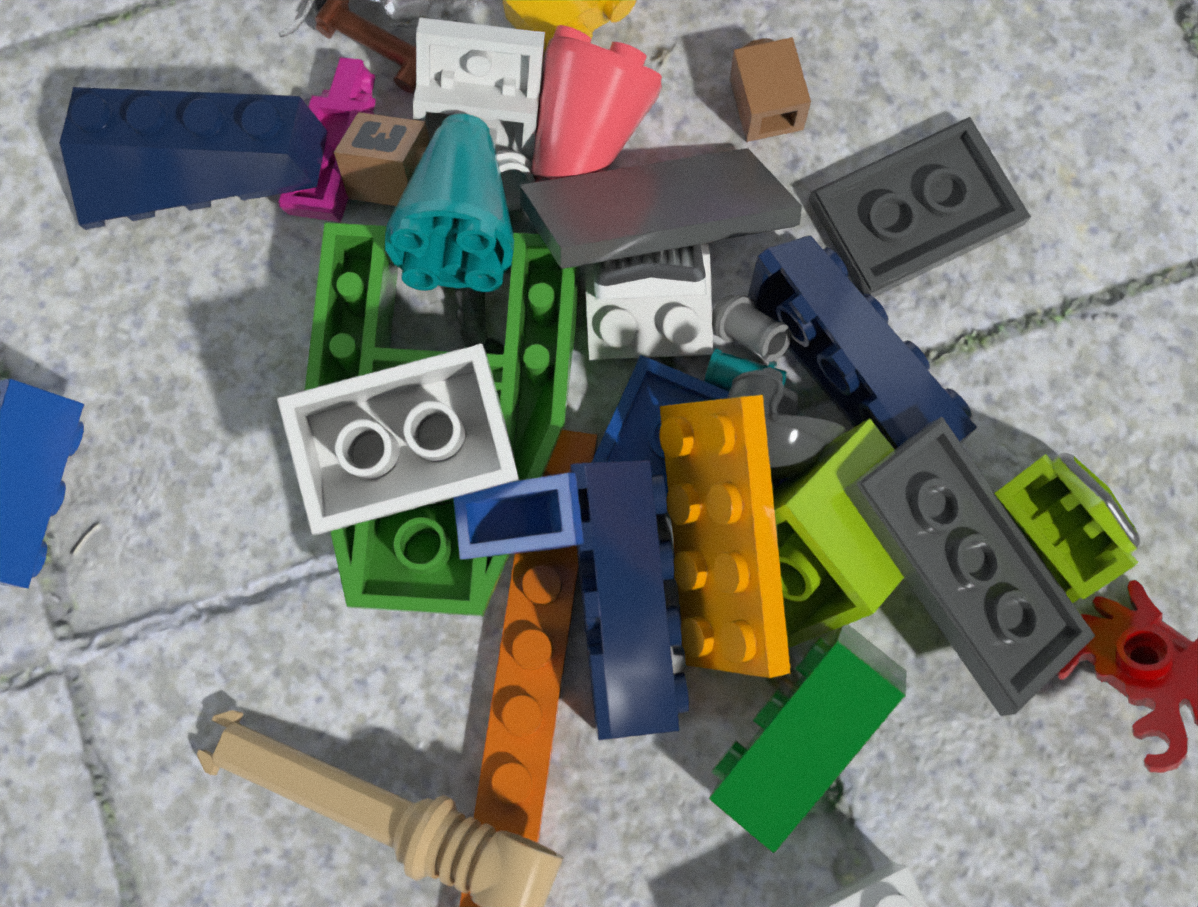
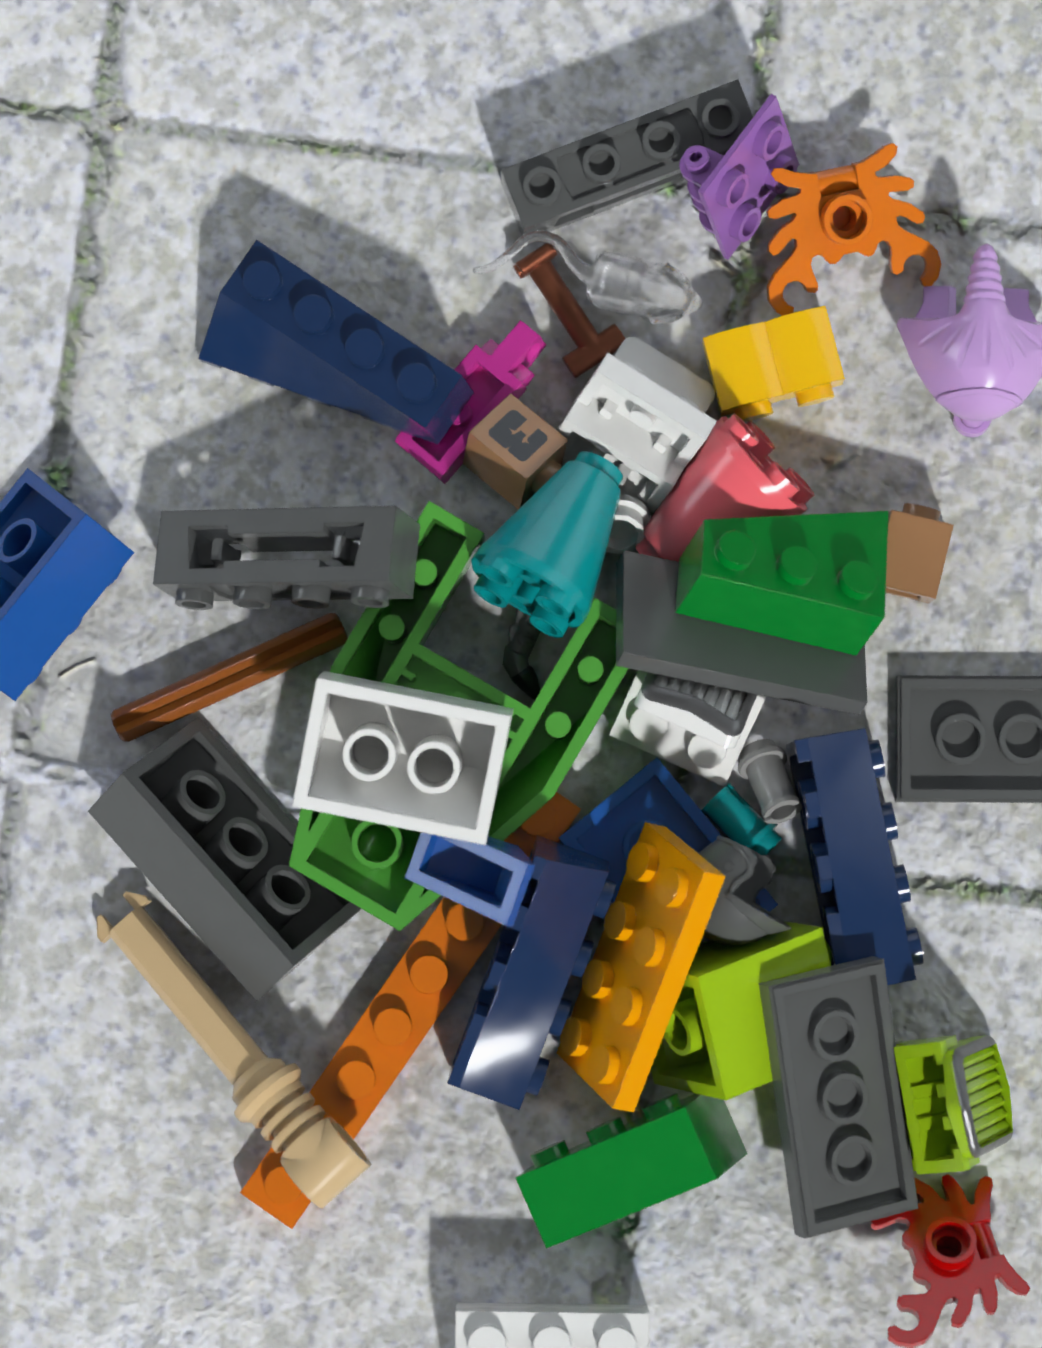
camera: 25 degrees right, 10 degrees up
(214, 487) = (229, 677): none -> dark orange axle
(218, 329) = (371, 541): none -> dark grey brick
(287, 639) = (221, 856): none -> dark grey slope
(675, 135) = (790, 576): none -> green wedge

